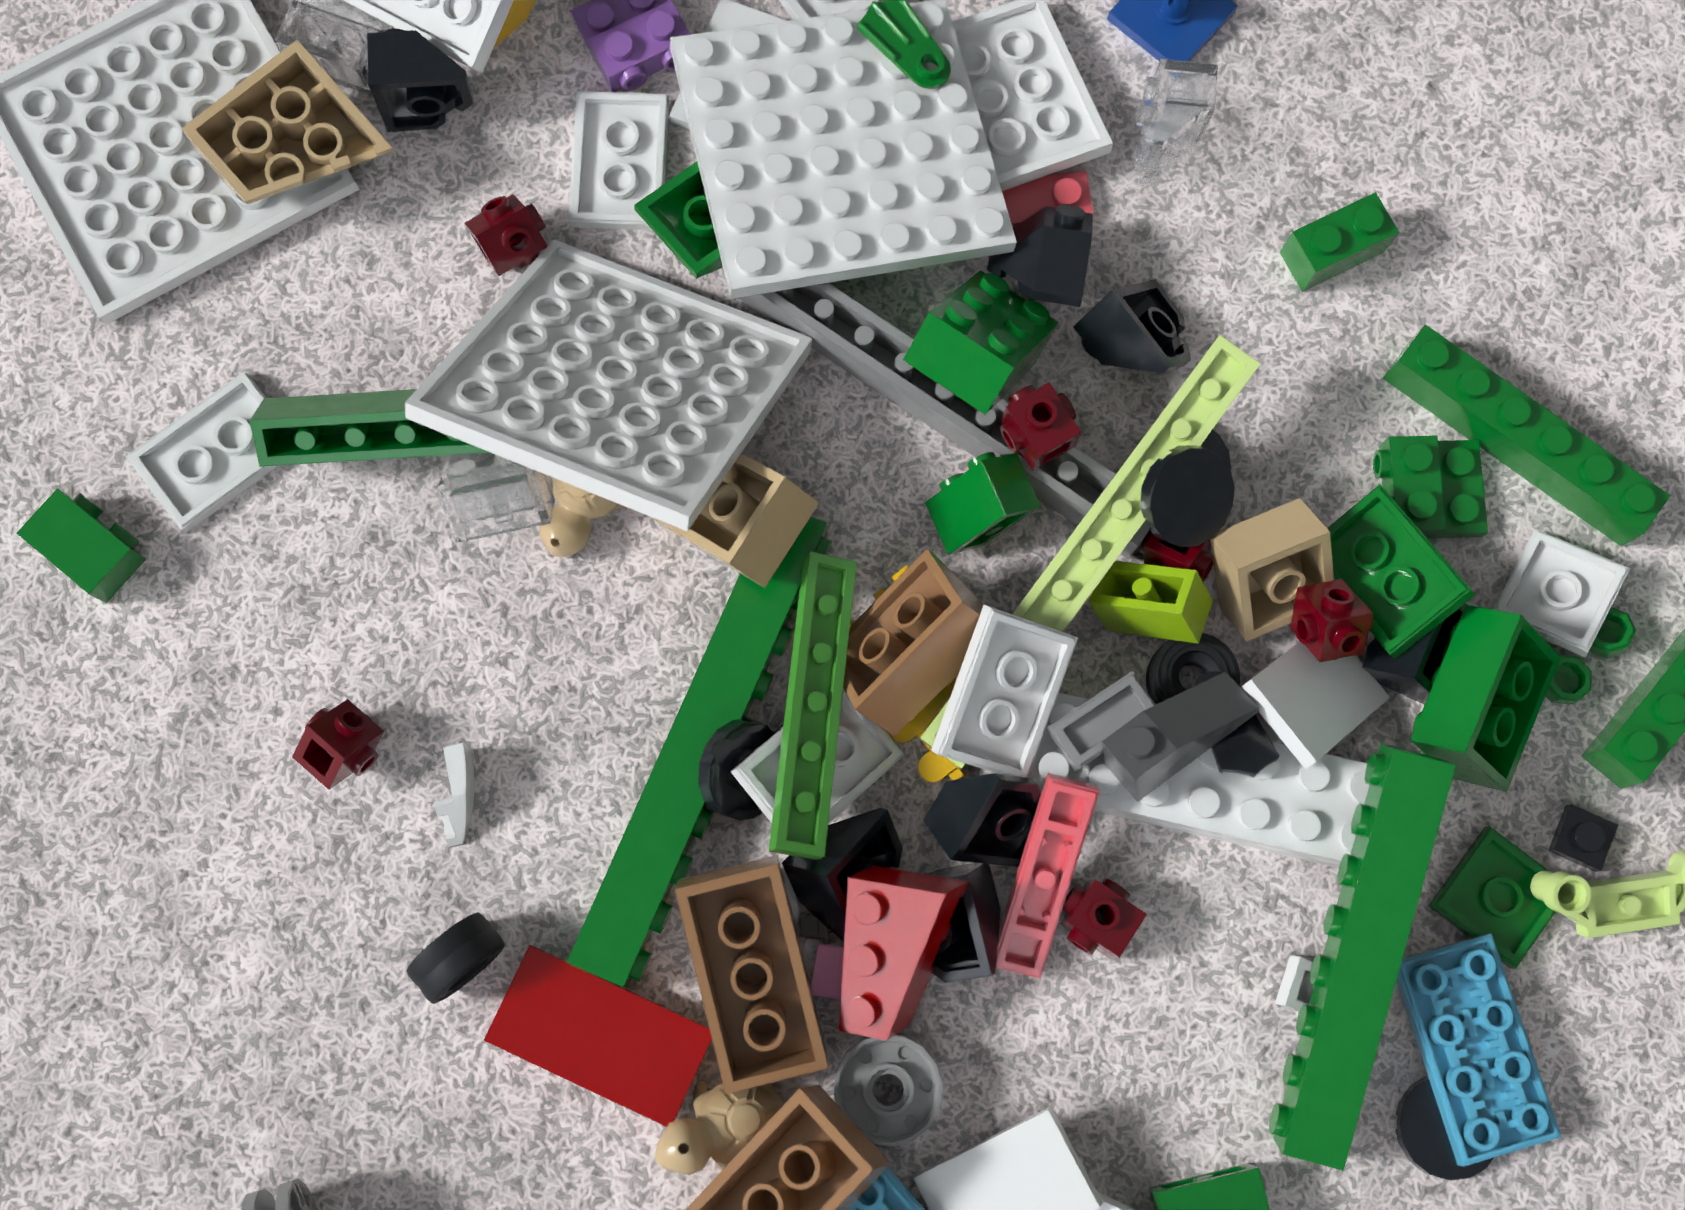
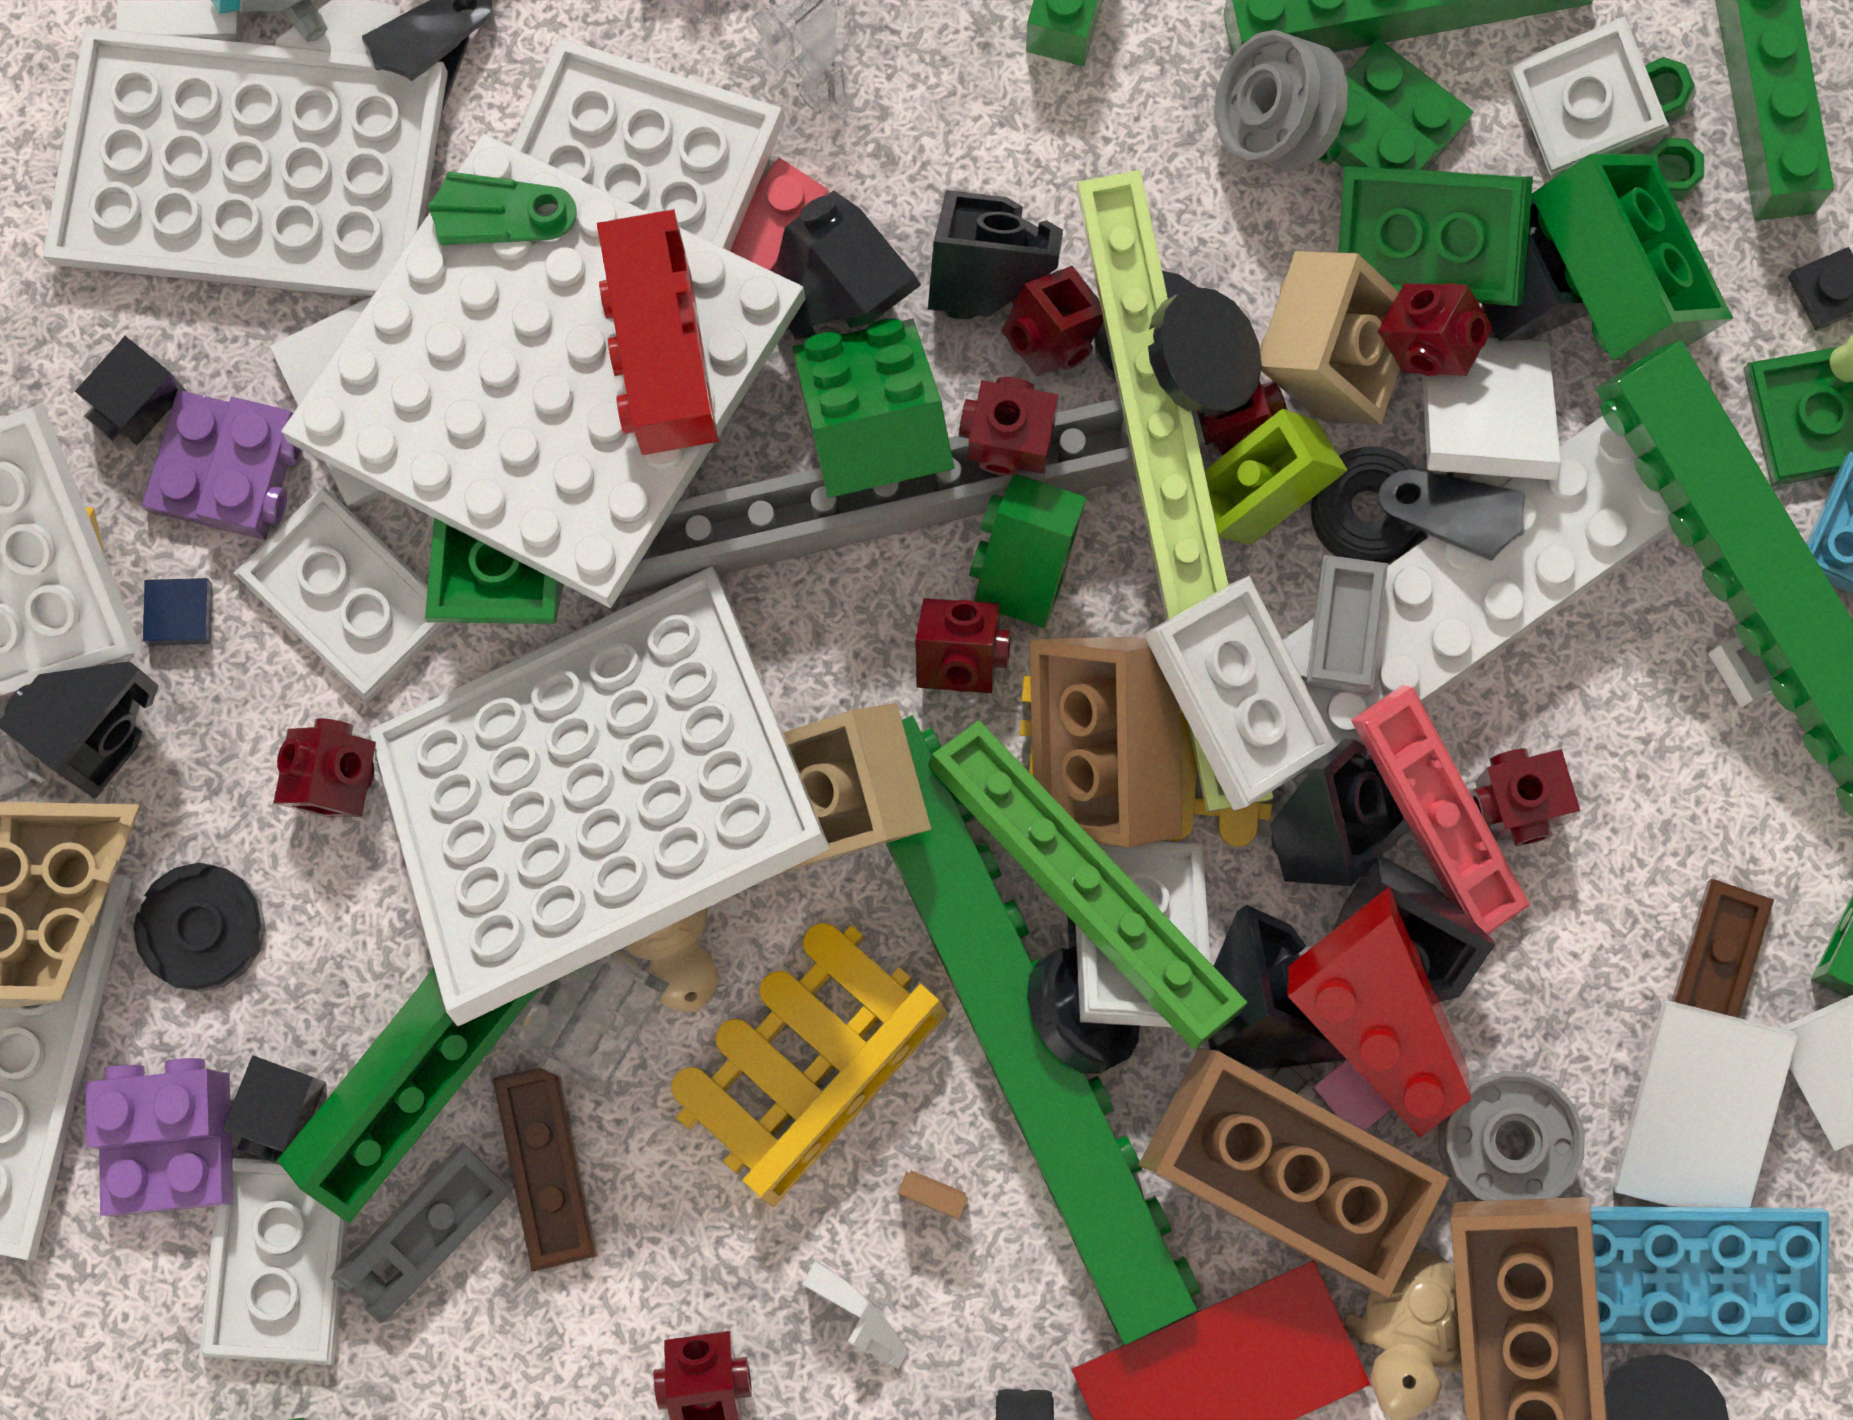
camera: 40 degrees left, 0 degrees up
(228, 328) = (161, 1137): none -> medium lavender plate
(295, 370) = (272, 1107): none -> black brick
(298, 514) = (423, 1232): none -> dark grey plate
(374, 261) = (220, 937): none -> black tile
(390, 552) = (544, 1168): none -> reddish brown tile
(529, 82) = (177, 611): none -> dark blue tile
(562, 778) = (933, 1194): none -> medium nougat tile
(602, 673) = (817, 1113): none -> yellow fence
(892, 515) = (960, 645): none -> dark red brick
(908, 179) = (656, 333): none -> red wedge
(1117, 1118) = (1723, 949): none -> reddish brown tile
(1130, 401) = (1054, 321): none -> dark red brick
(1175, 733) = (1420, 567): dark grey slope -> none
(1384, 414) = (1280, 101): none -> light grey wheel

